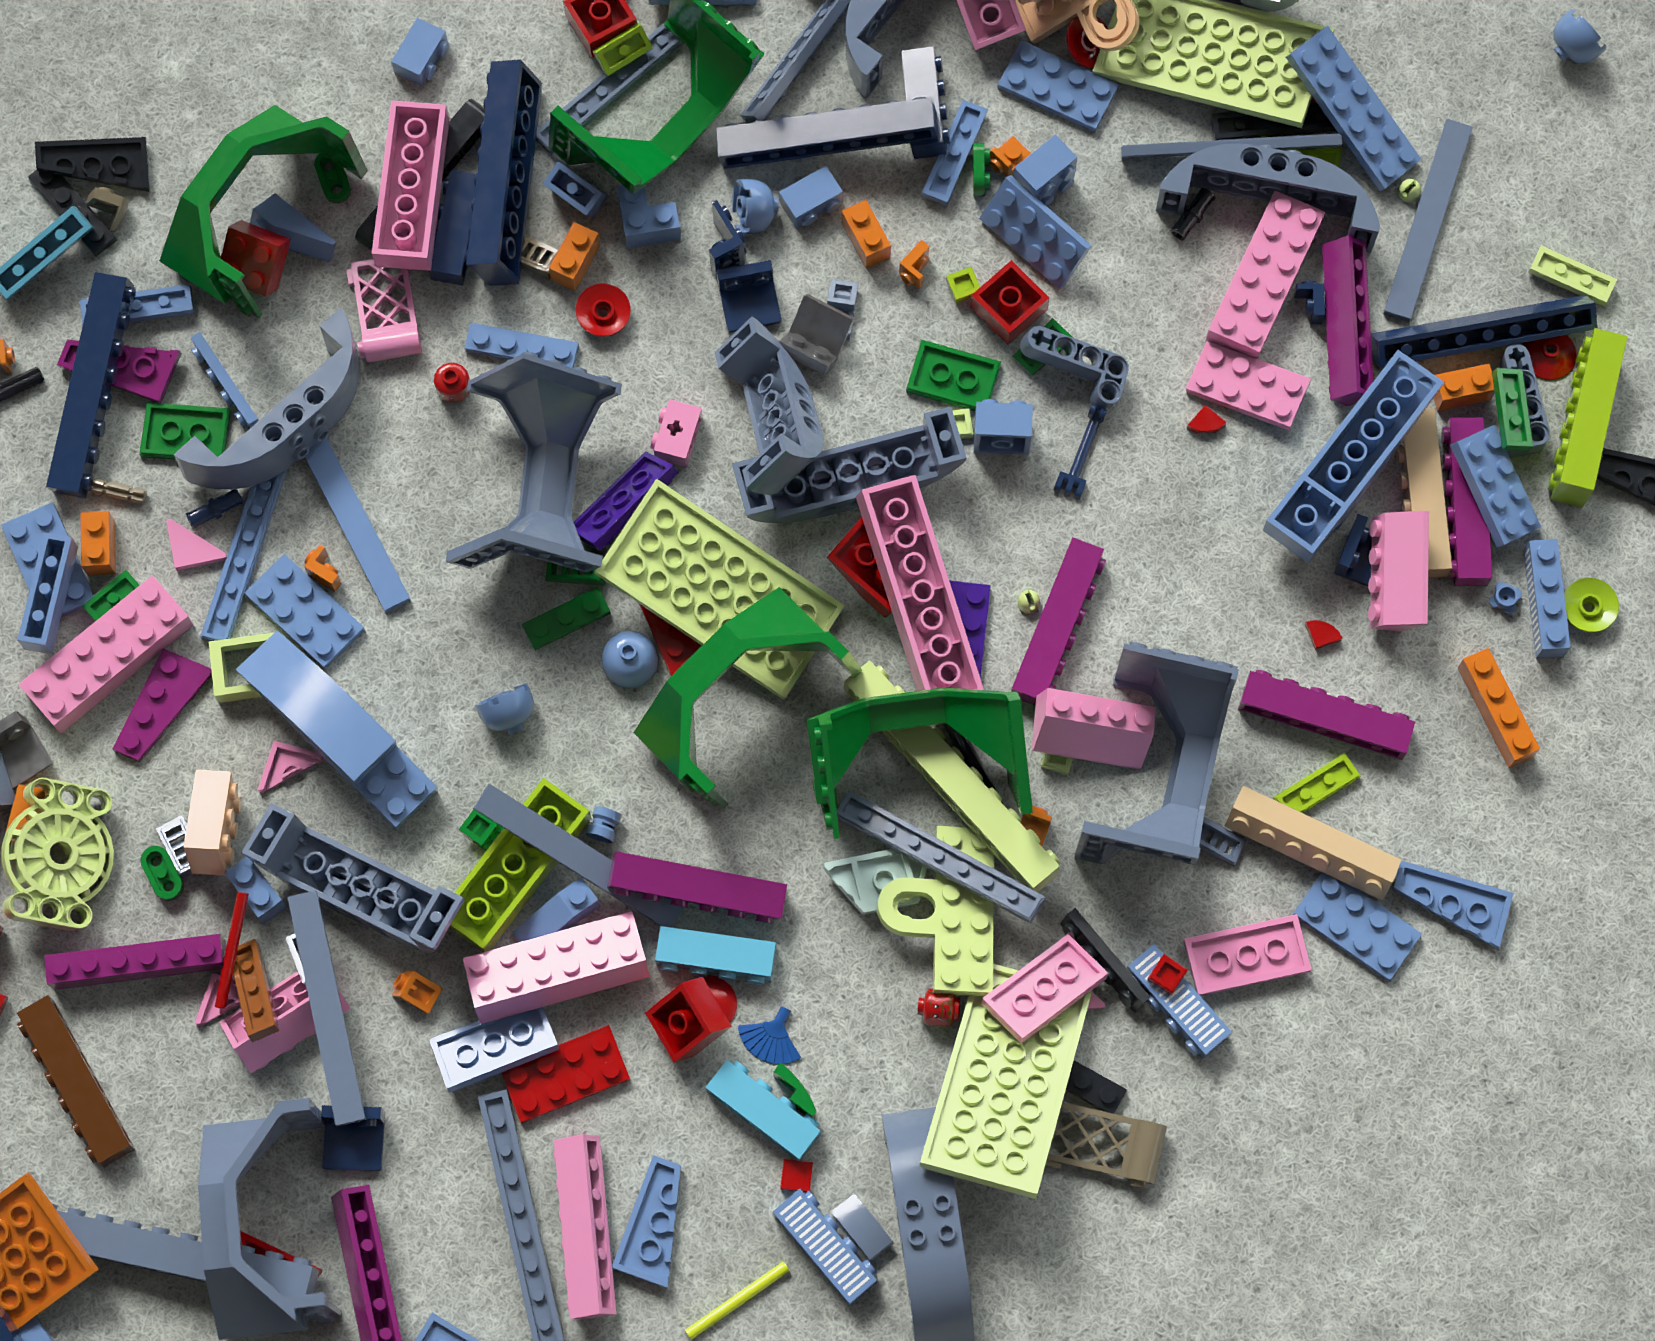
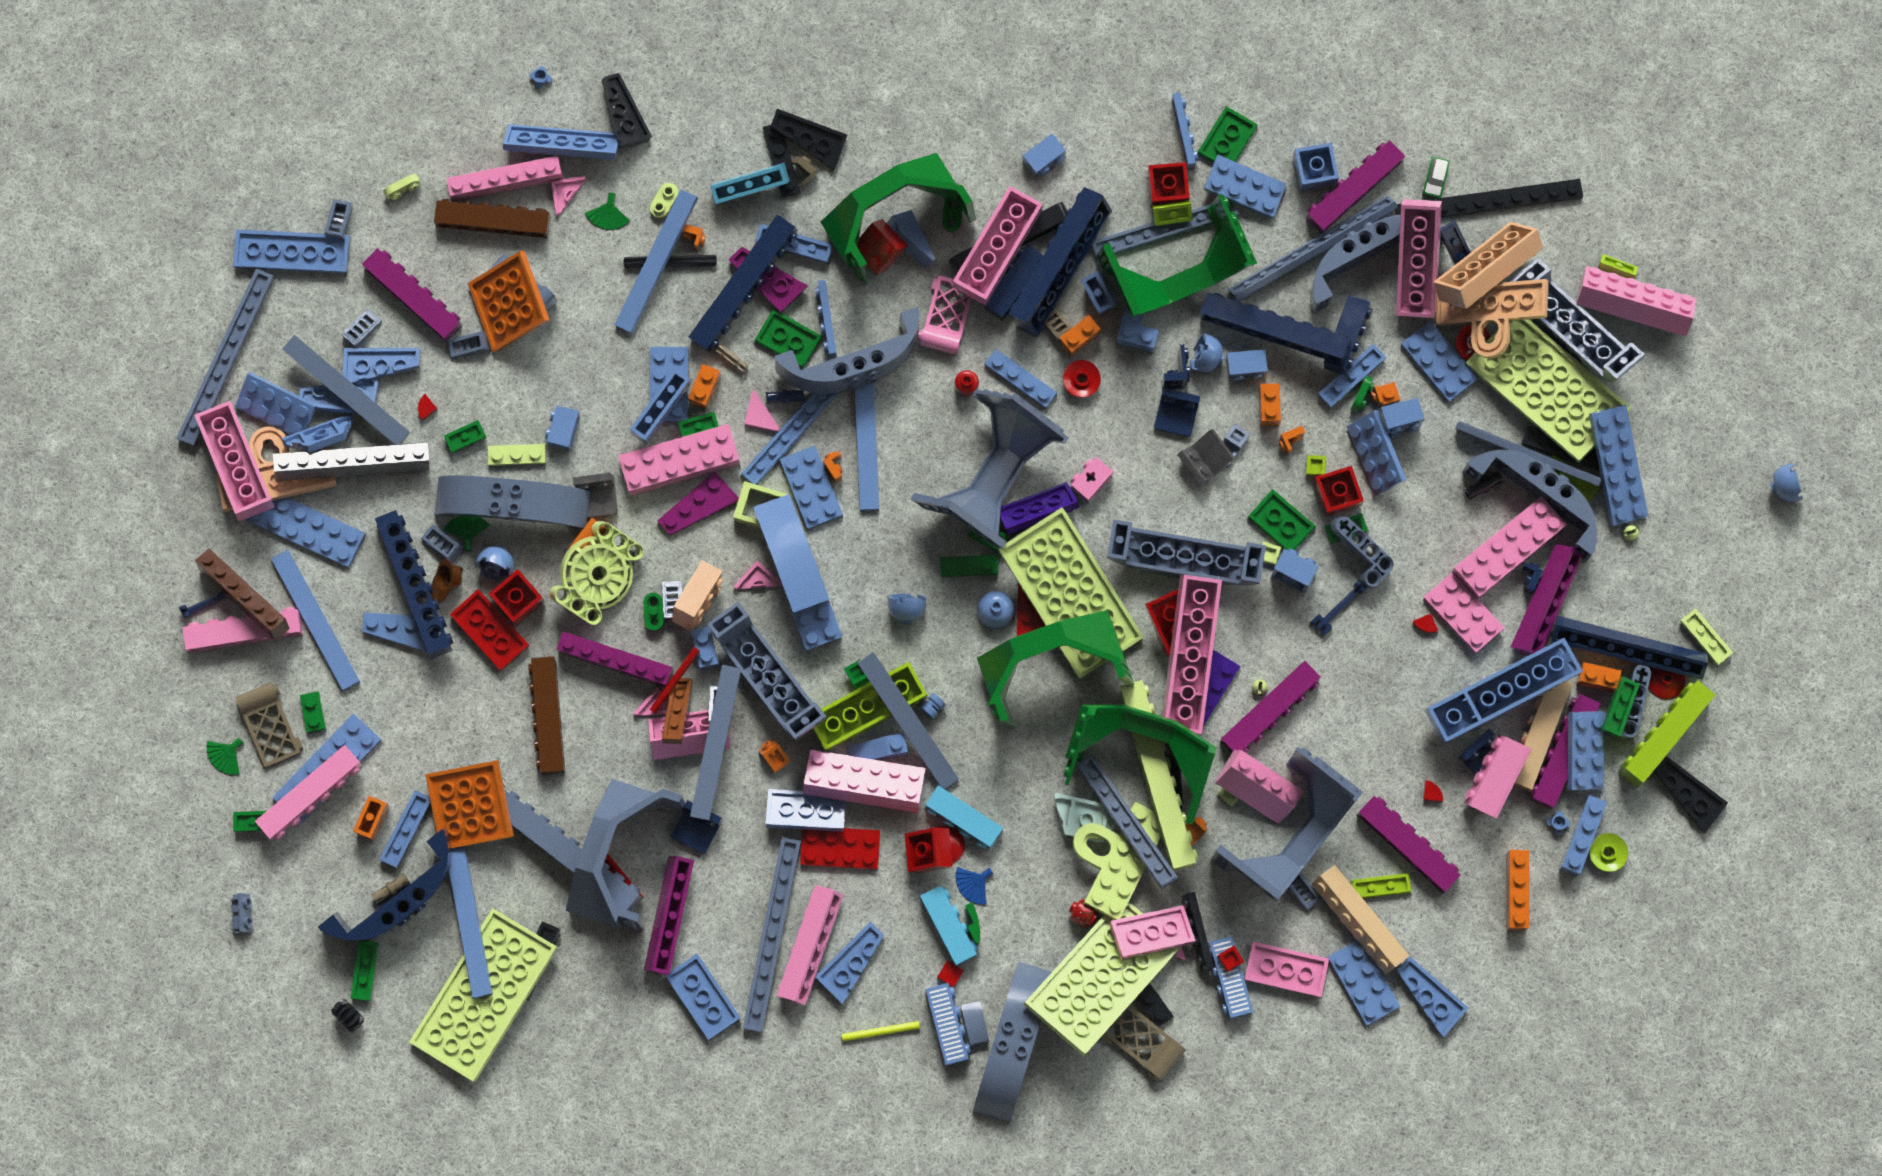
camera: 25 degrees right, 5 degrees up
(697, 886) = (970, 770): magenta brick -> none
(778, 407) = (1160, 494): sand blue slope -> none
(1427, 220) = (1632, 557): sand blue tile -> none

